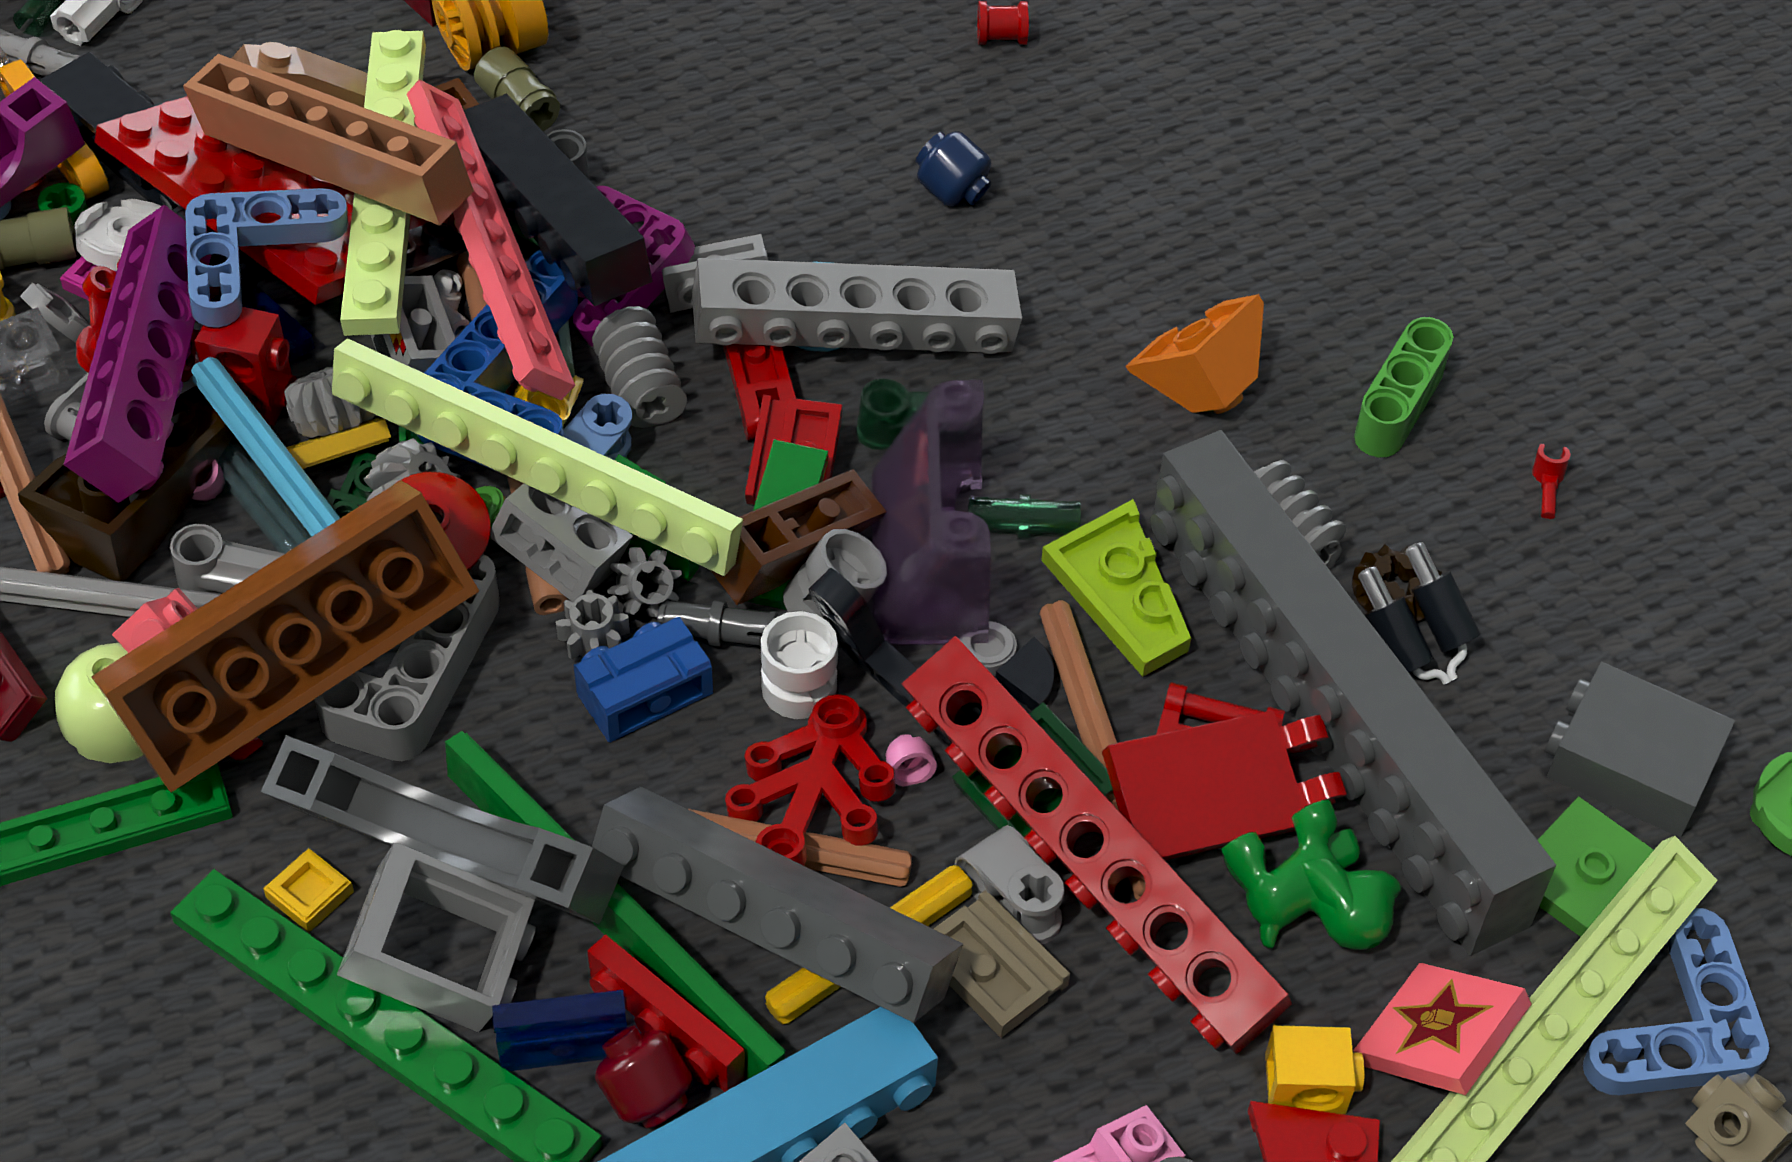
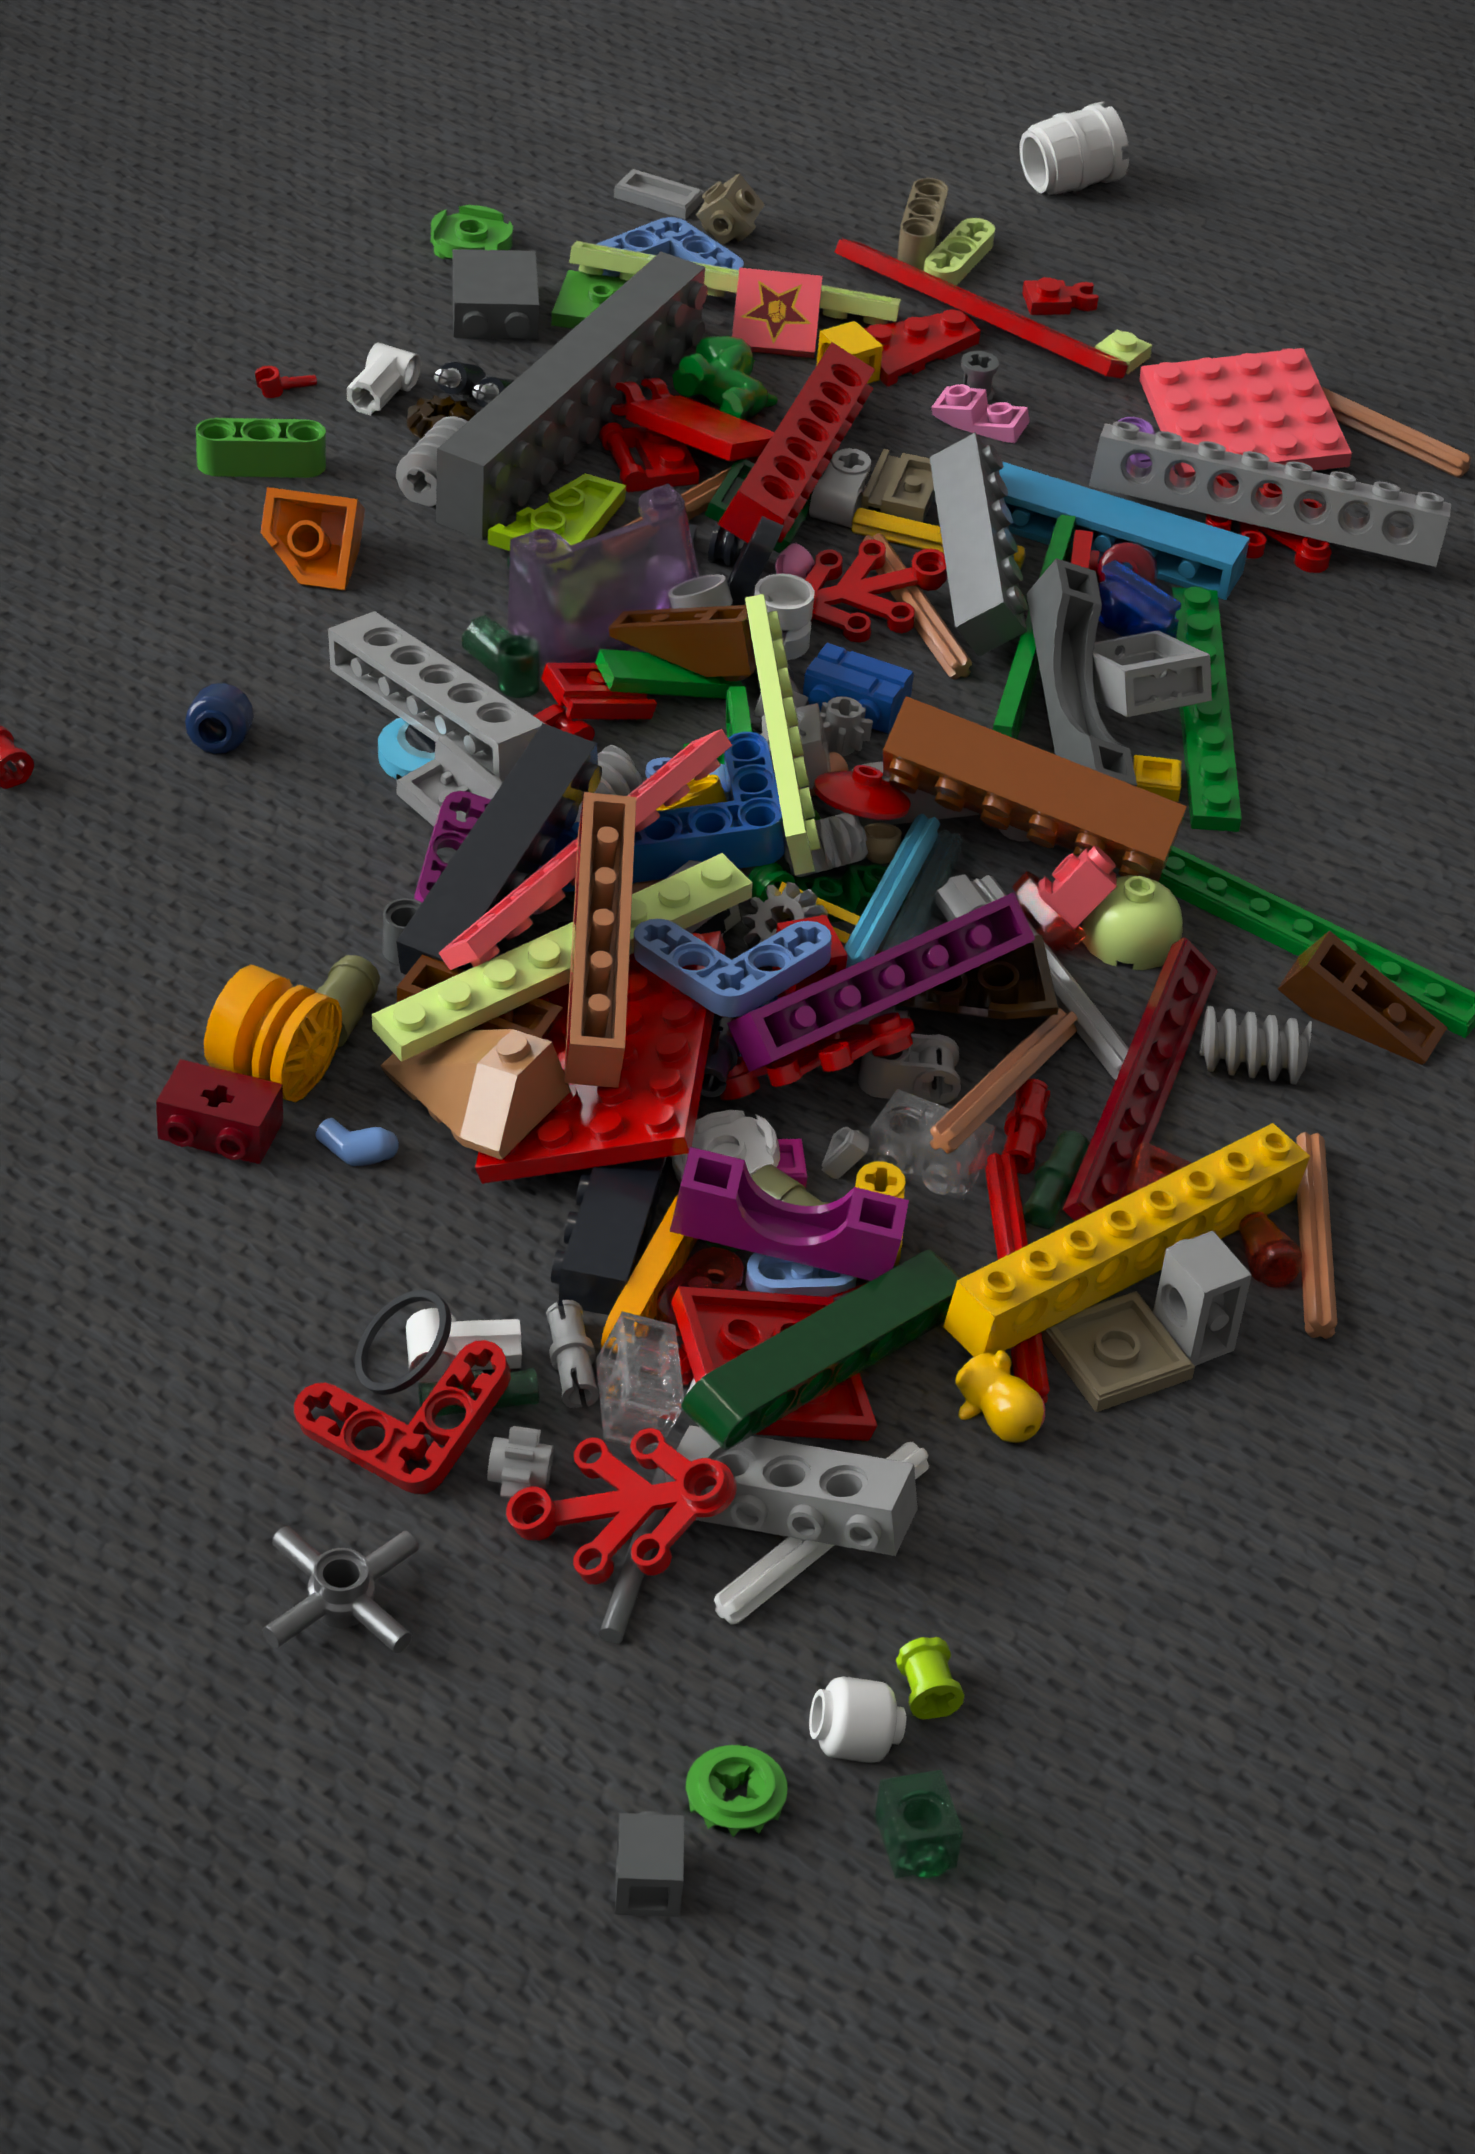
camera: 125 degrees left, 10 degrees down
(346, 44) = (358, 1146): none -> medium blue arm
(1509, 568) = (384, 374): none -> white piece

